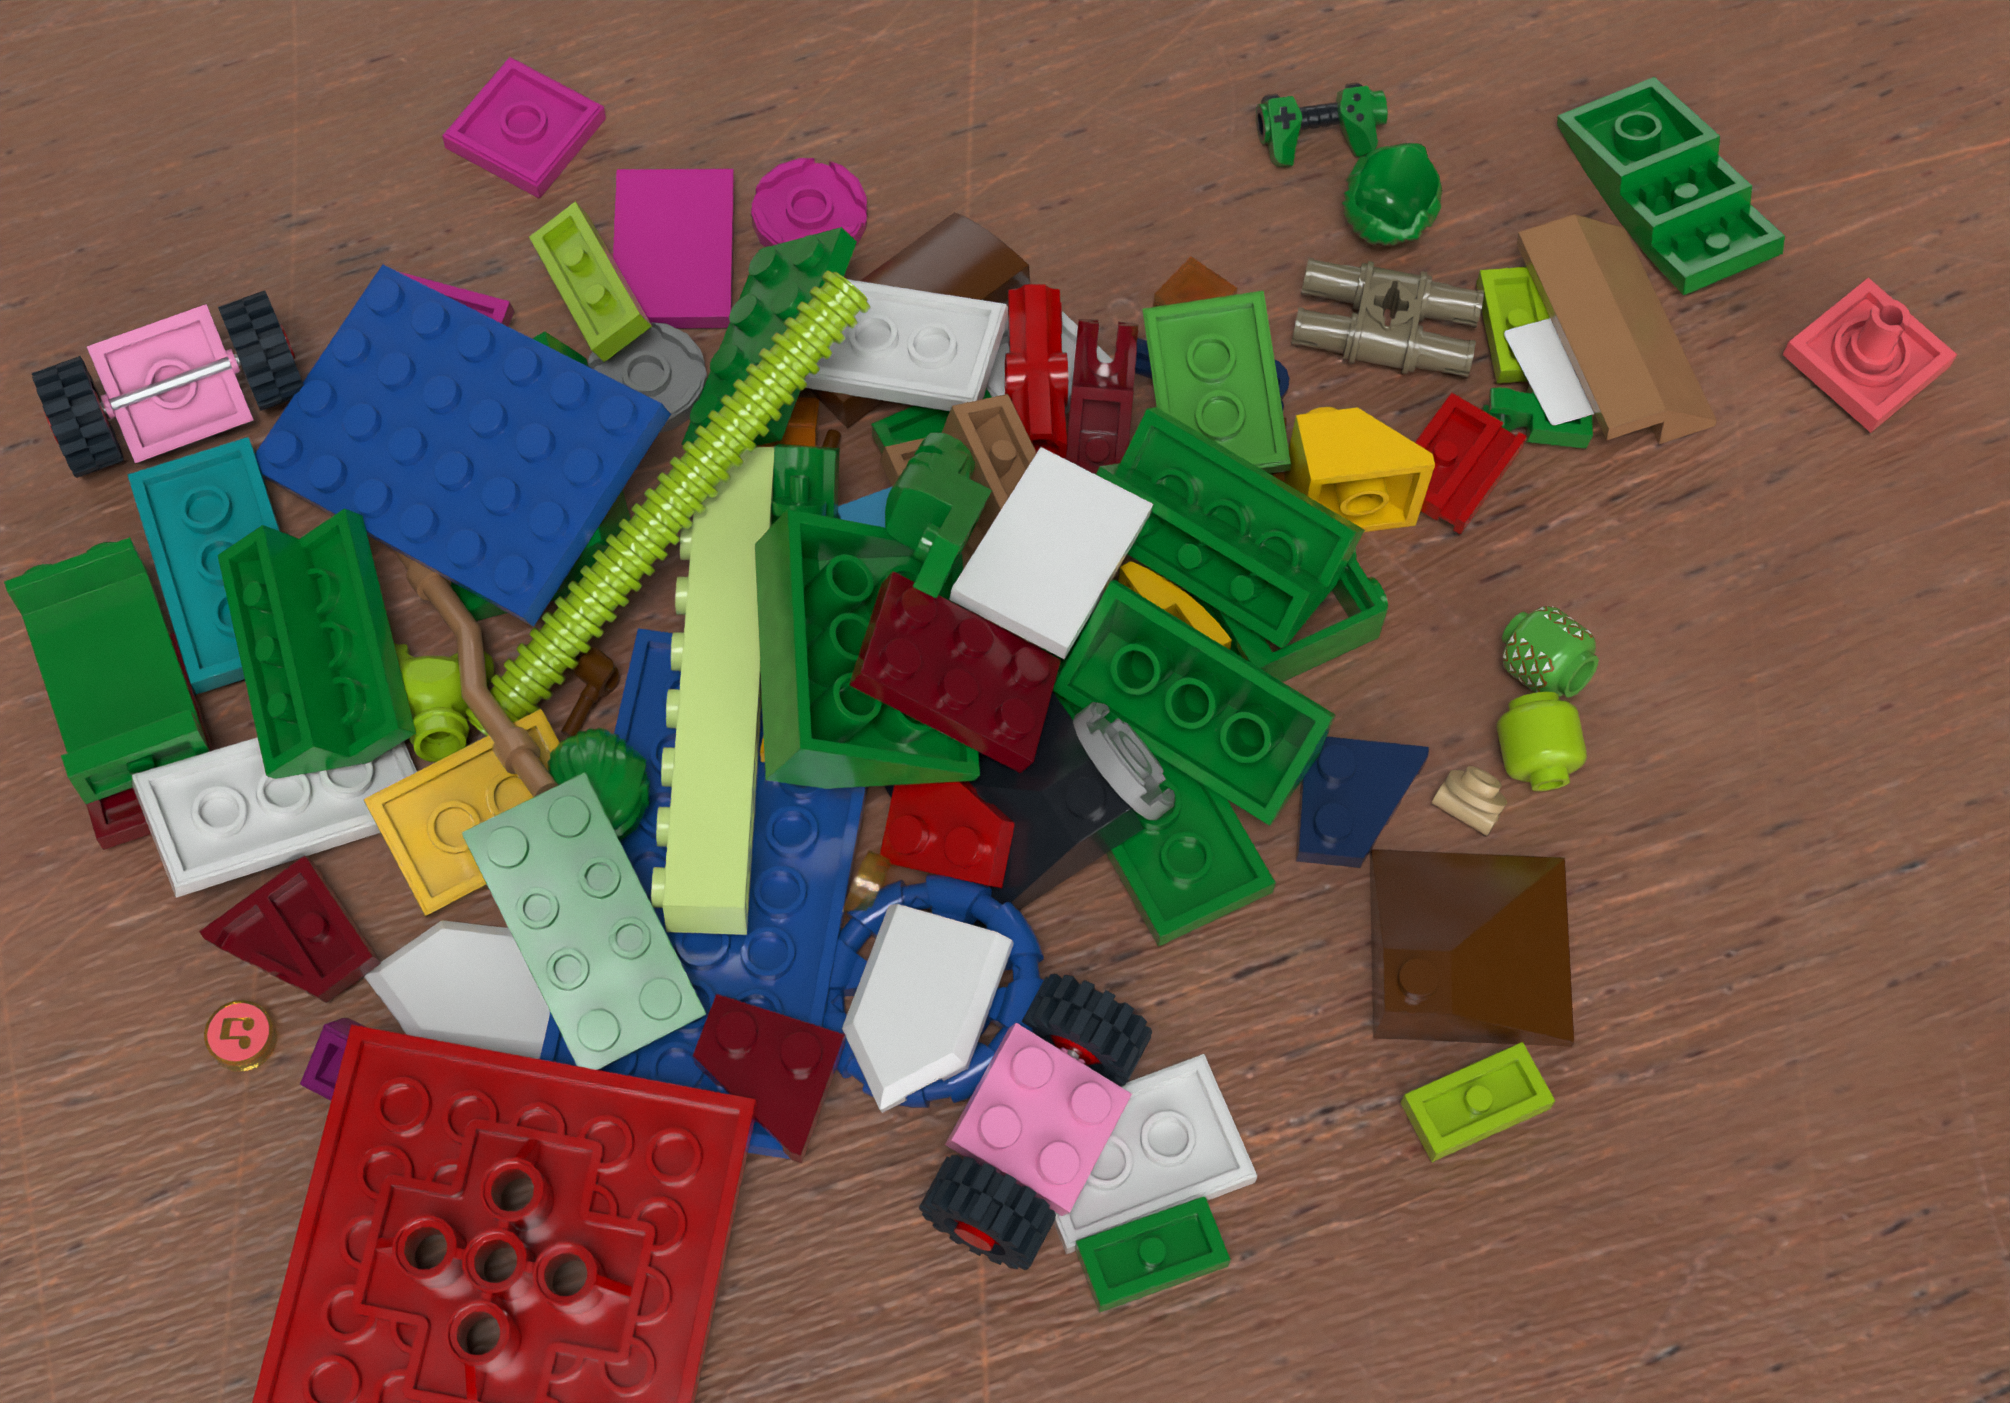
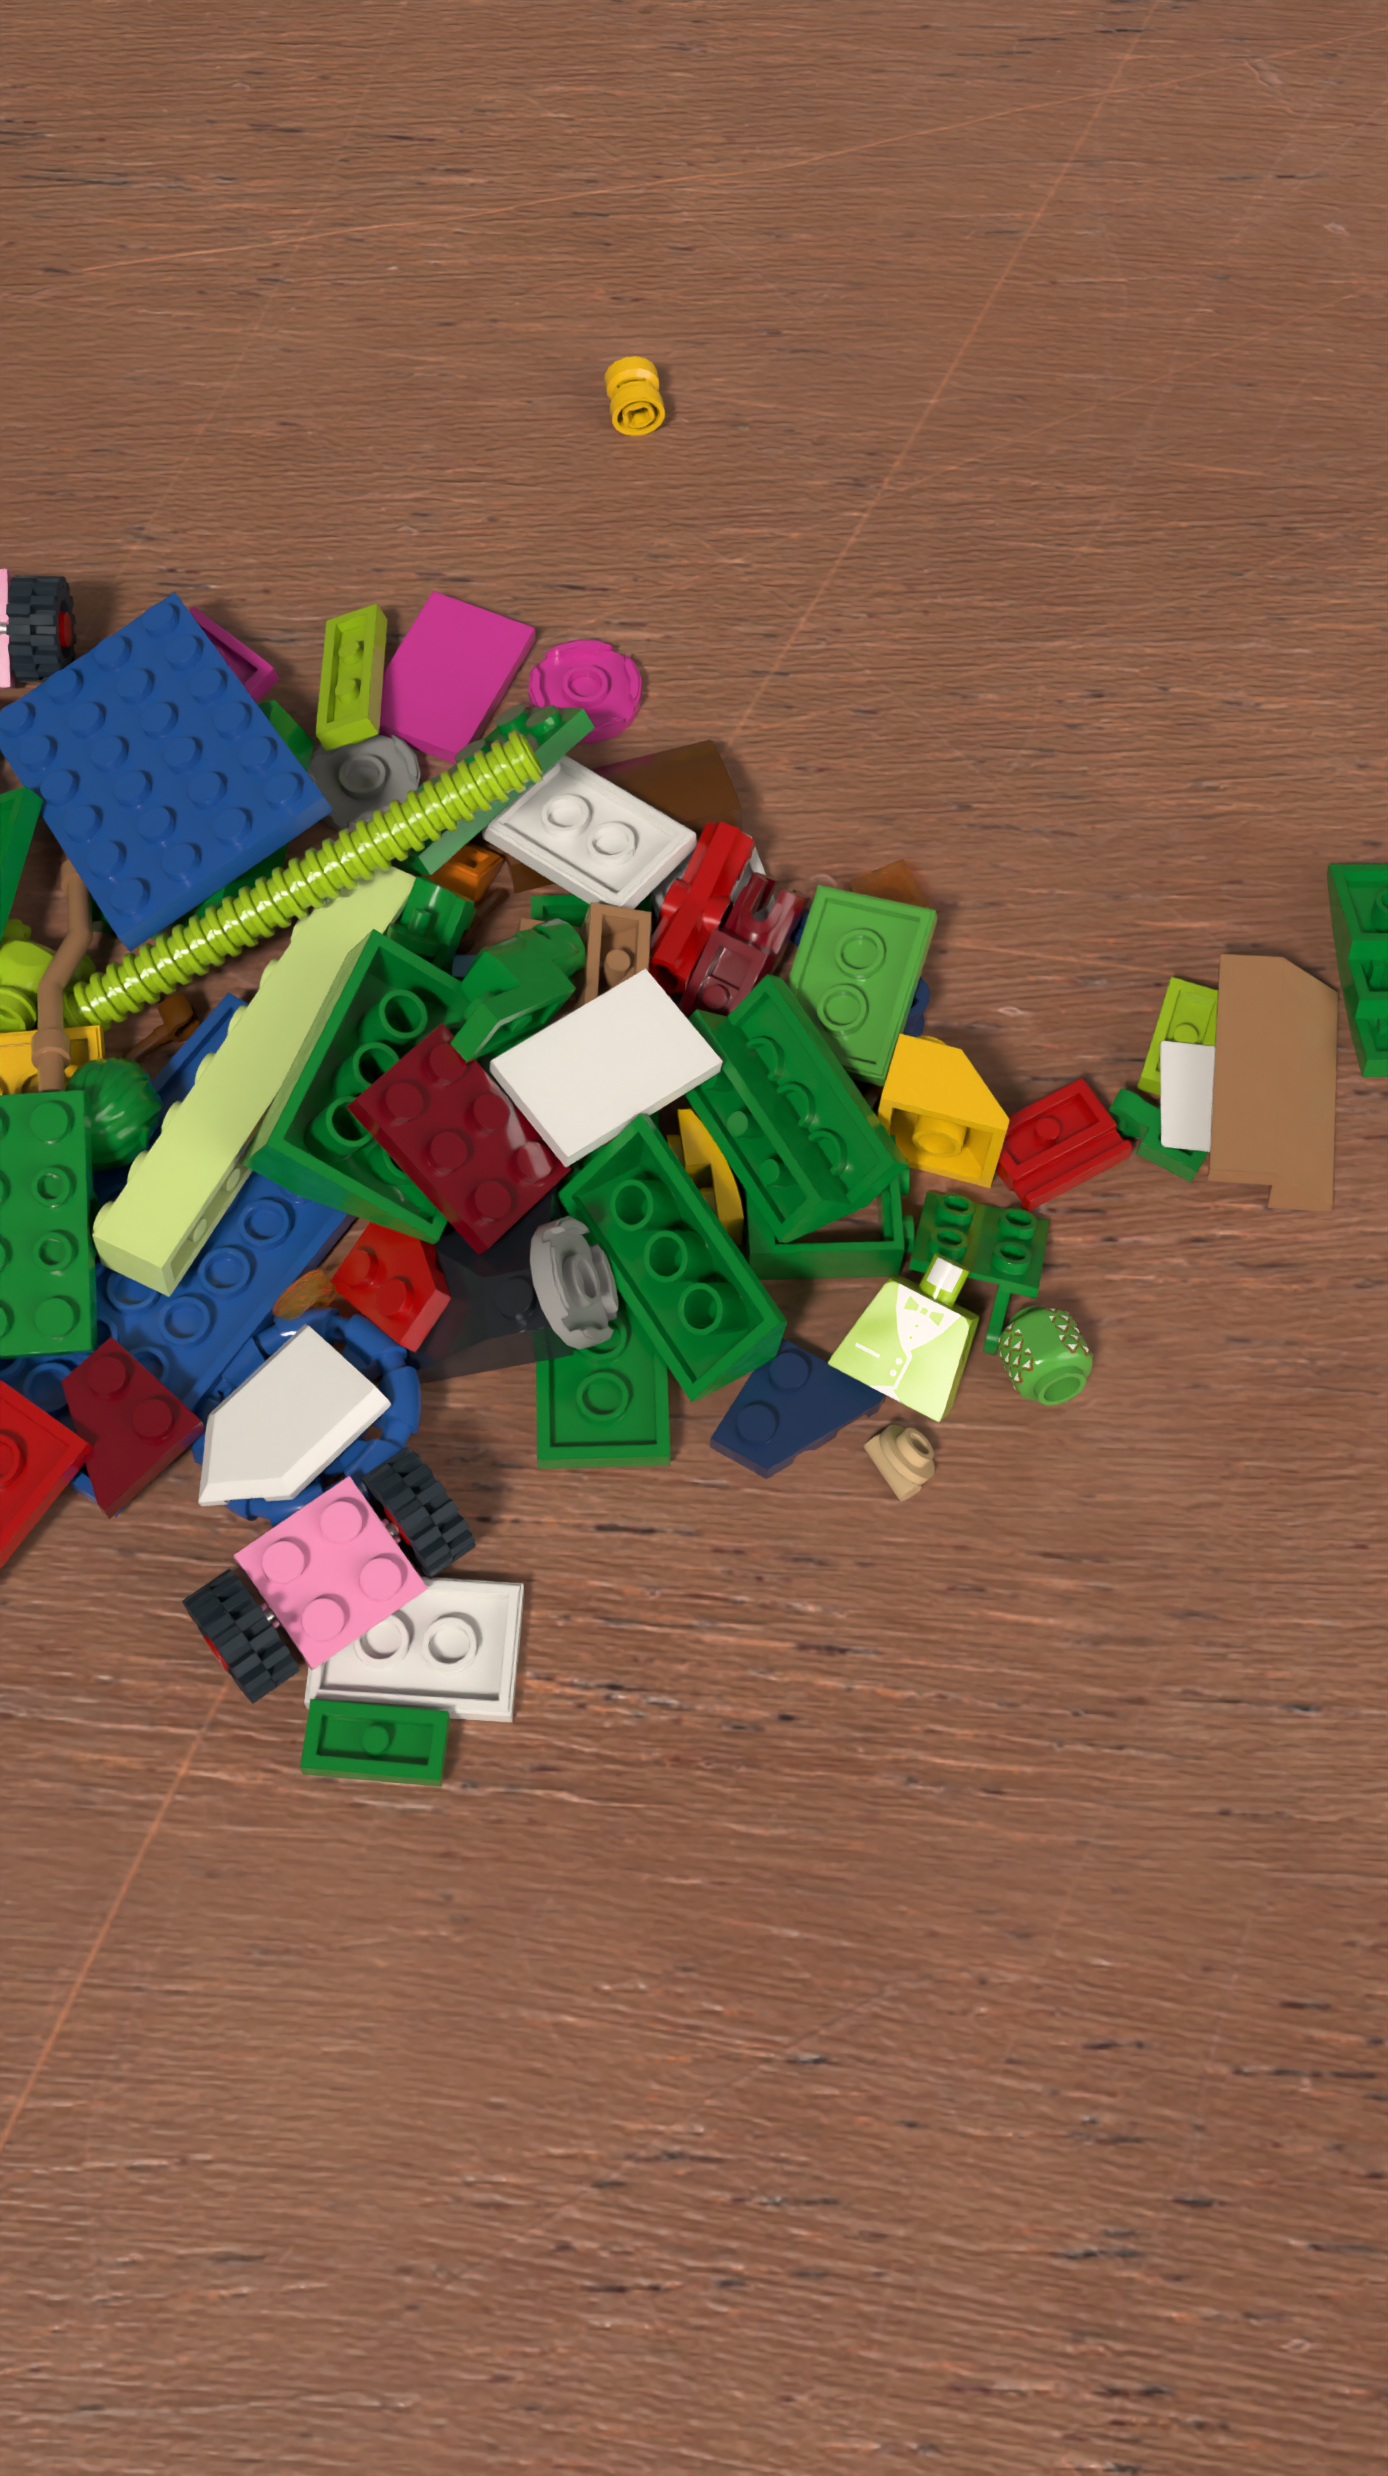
camera: 25 degrees right, 0 degrees up
(524, 127) = (377, 526): dark pink tile -> none
(1355, 111) = (1133, 788): green piece -> none
(1393, 194) = (1122, 875): green hair -> none
(1409, 300) = (1063, 1012): dark tan pin -> none
(1435, 686) = (913, 1340): none -> torso
(1446, 578) = (990, 1242): none -> green plate
(1470, 948) = (826, 1597): reddish brown slope -> none
(1477, 1101) = (752, 1741): lime plate -> none
(1541, 740) = (993, 1433): lime head -> none

